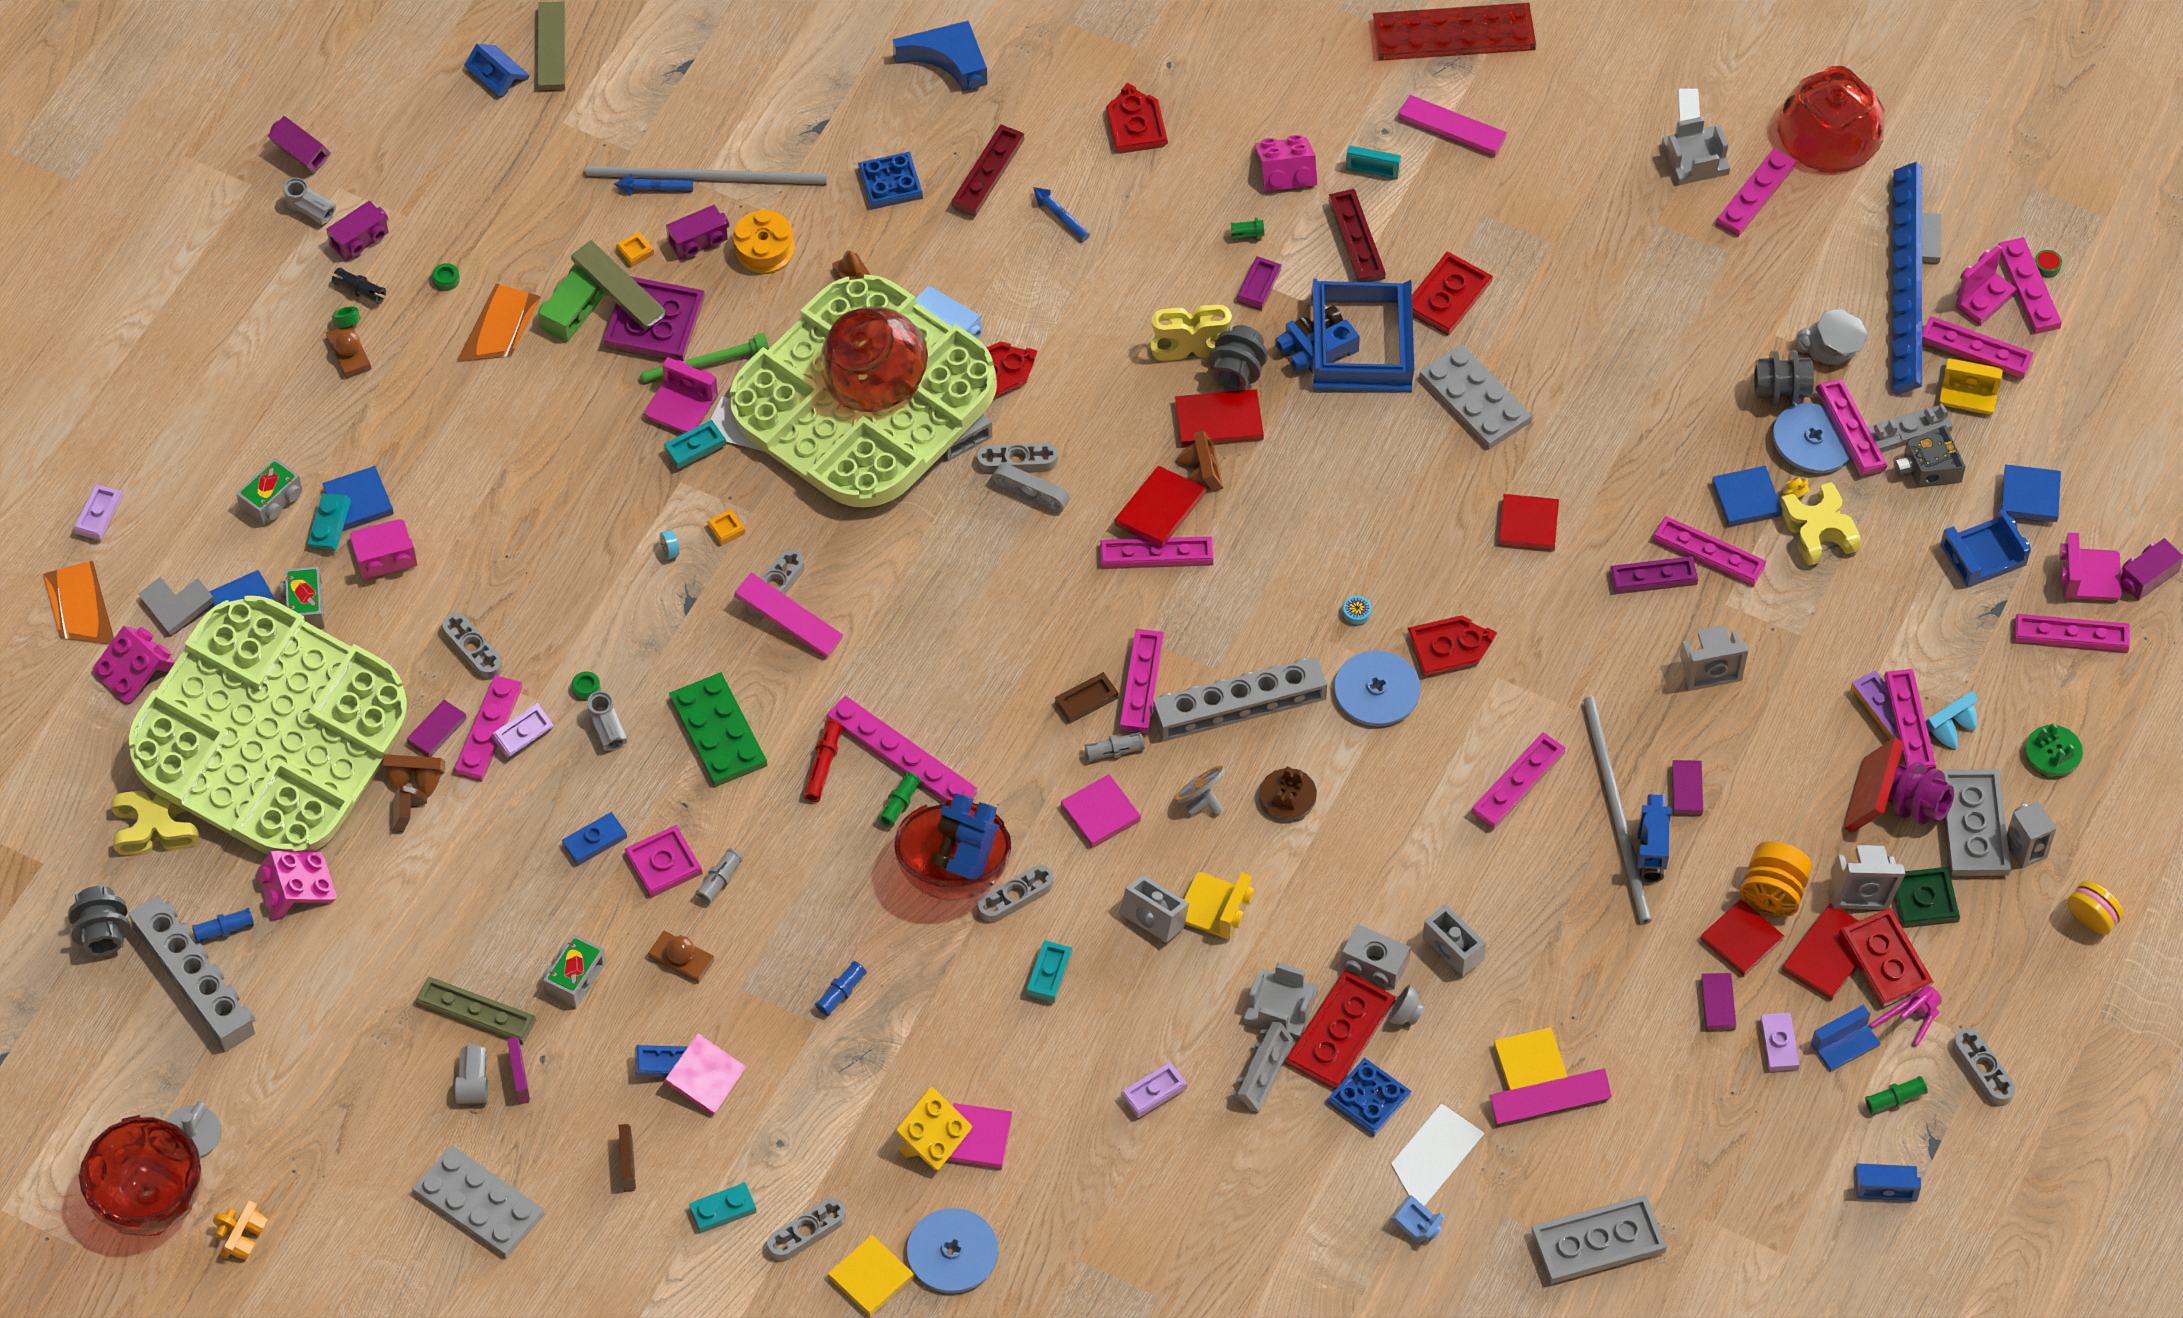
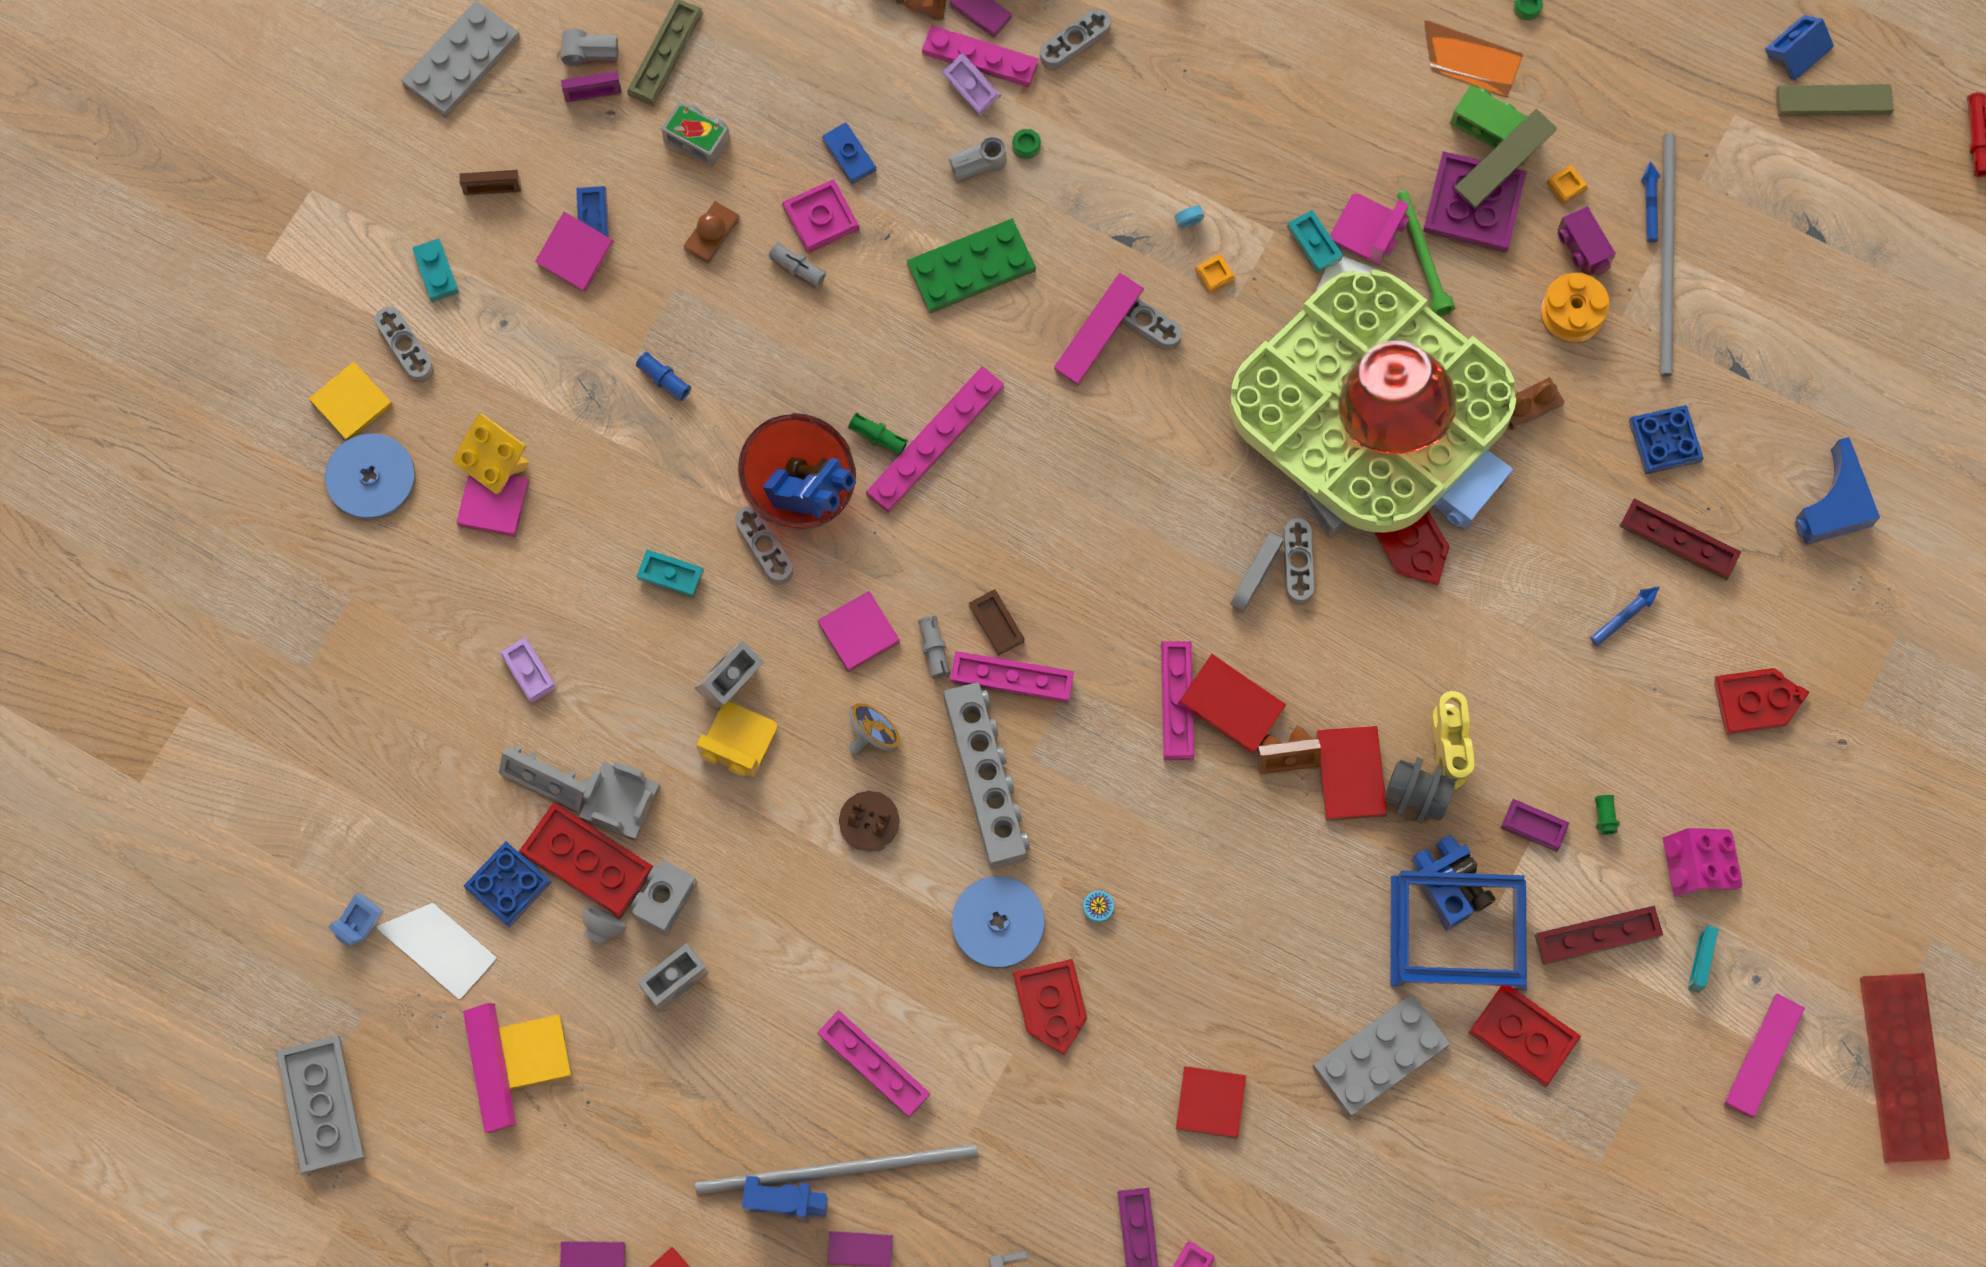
camera: 90 degrees right, 15 degrees up
(826, 750) = (921, 360): red pin -> none

